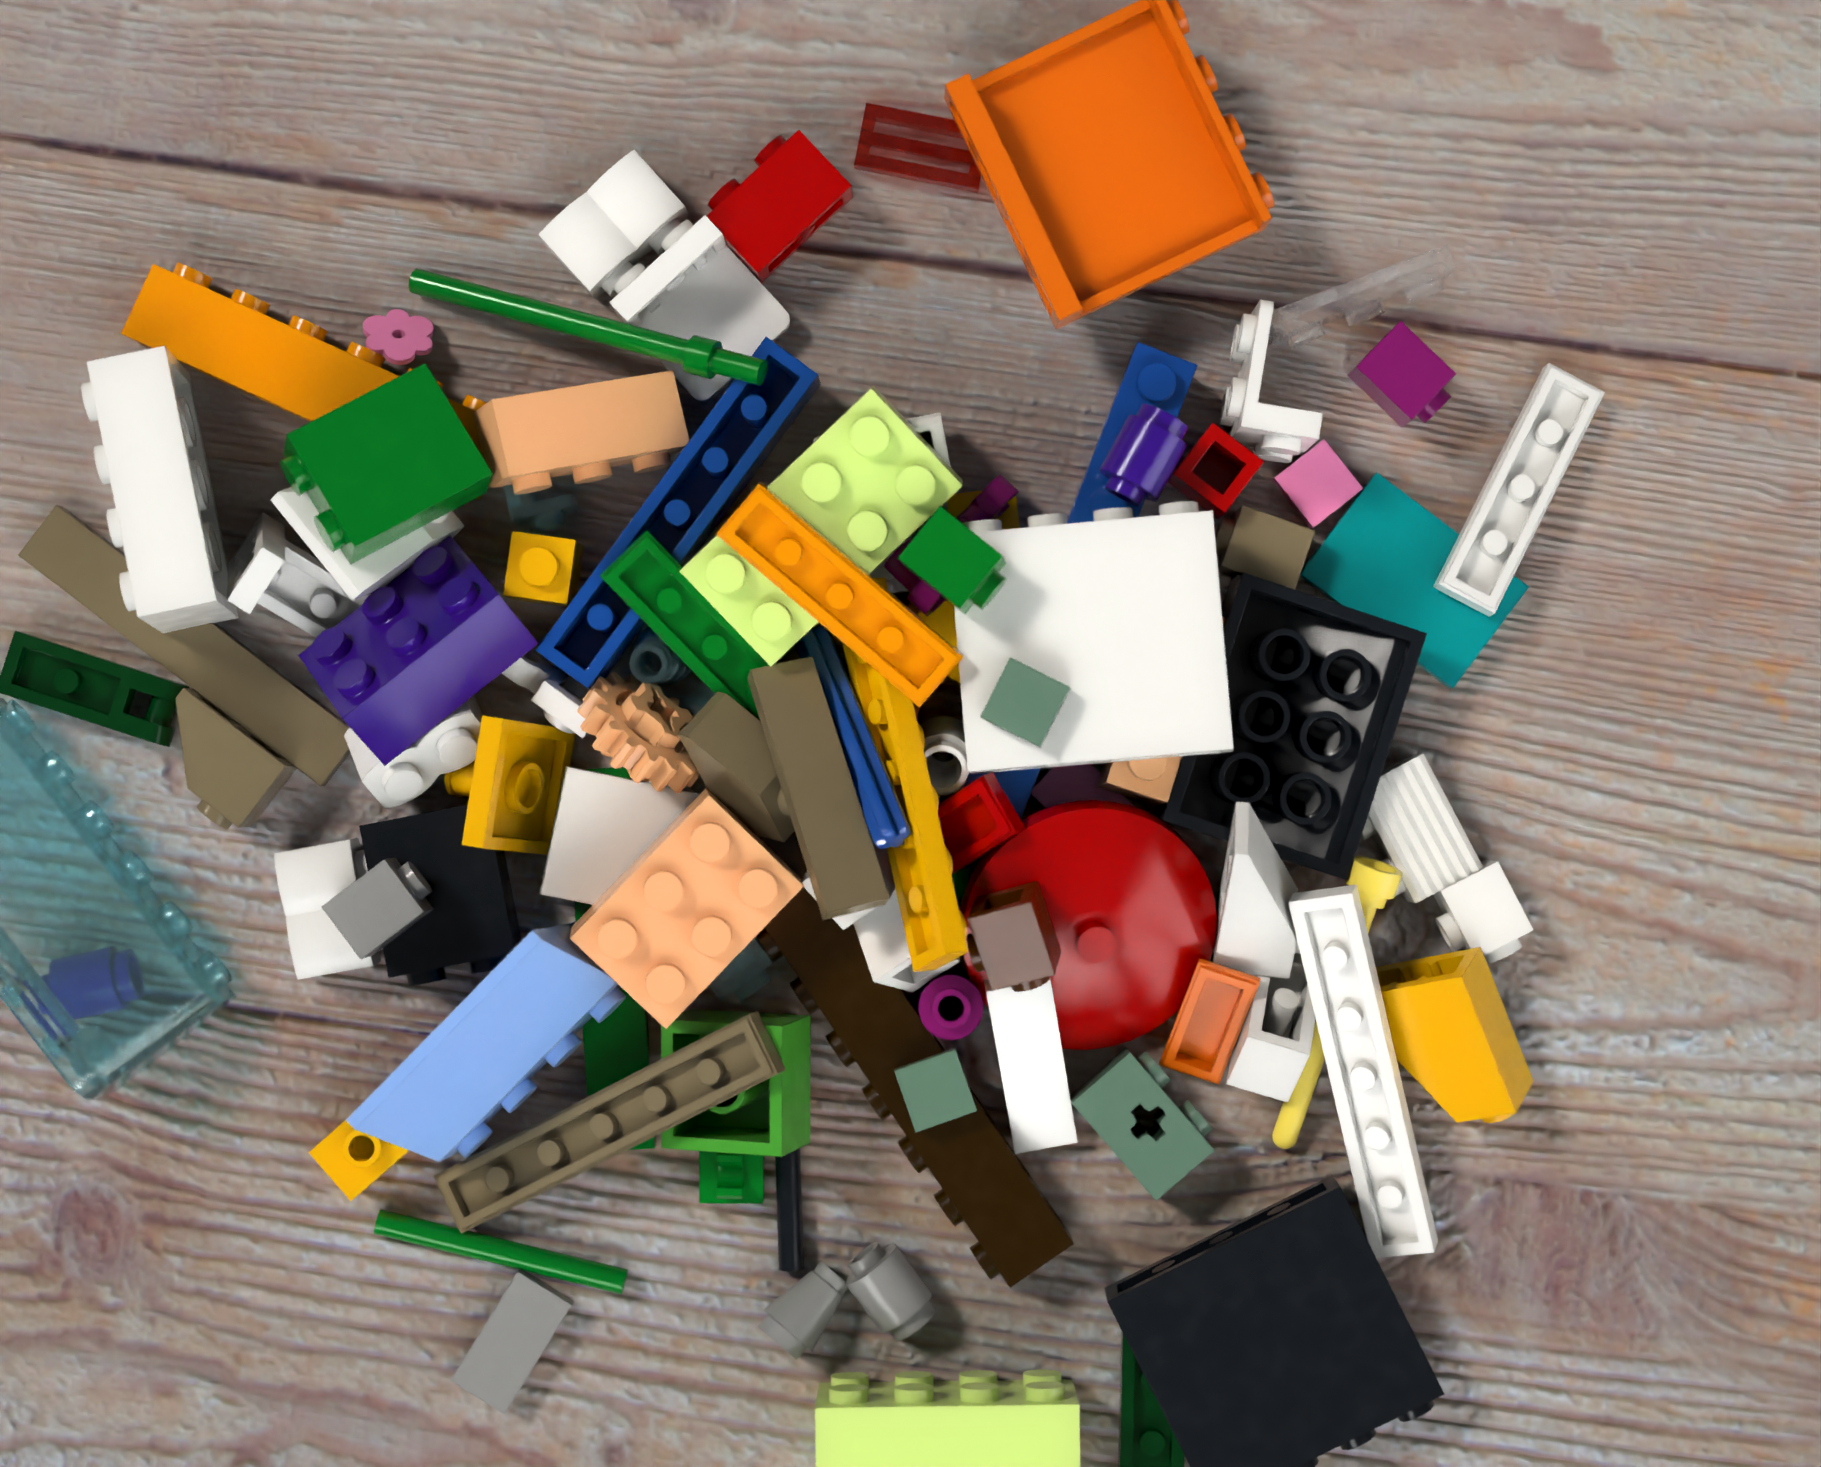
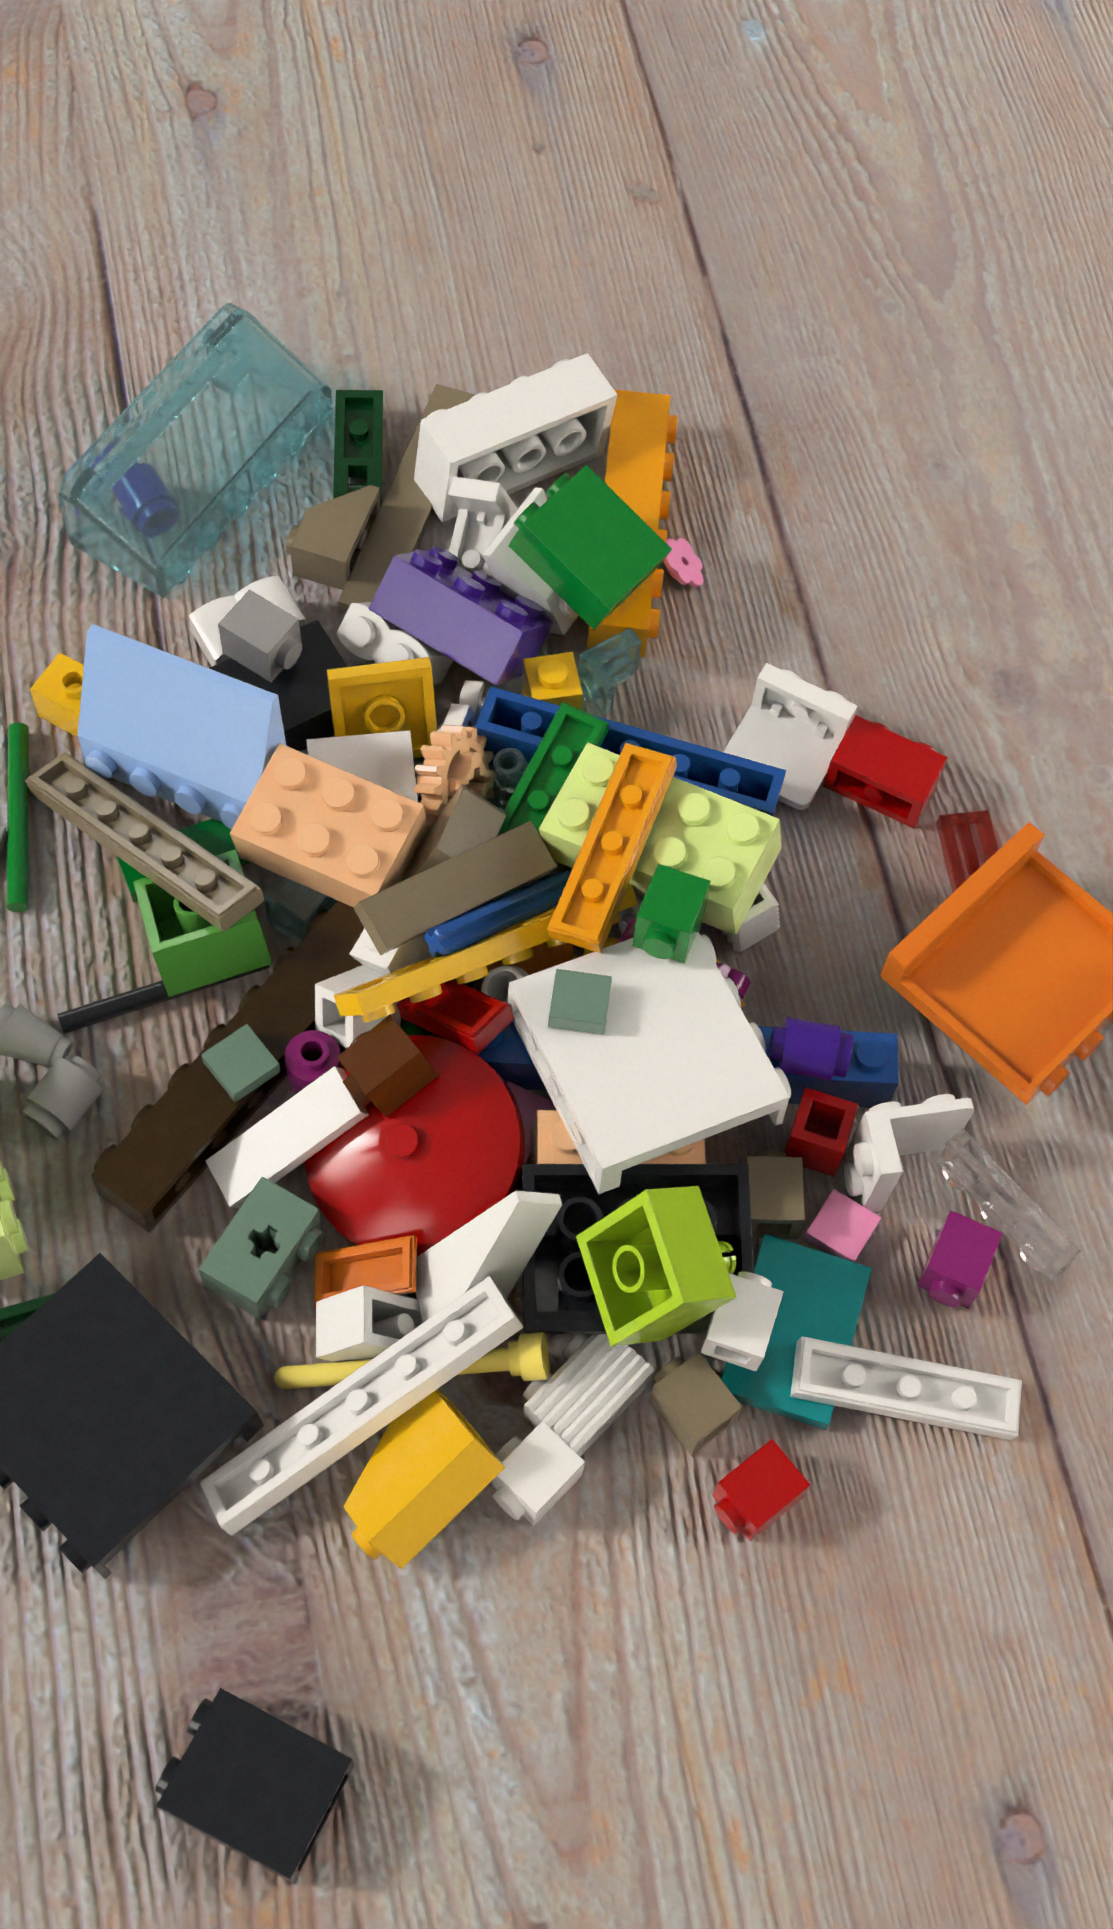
camera: 65 degrees right, 25 degrees down
(582, 431) = (664, 673): light nougat brick -> none
(614, 225) = (827, 661): white brick -> none
(698, 355) = (751, 727): green bar -> none
(731, 1178) = (127, 958): green tile -> none
(1355, 725) = (656, 1265): none -> lime brick
(1425, 650) = (744, 1325): none -> white brick
(1460, 720) = (693, 1401): none -> dark tan brick
(1576, 688) = (759, 1491): none -> red brick
(1692, 1288) = (253, 1784): none -> black brick

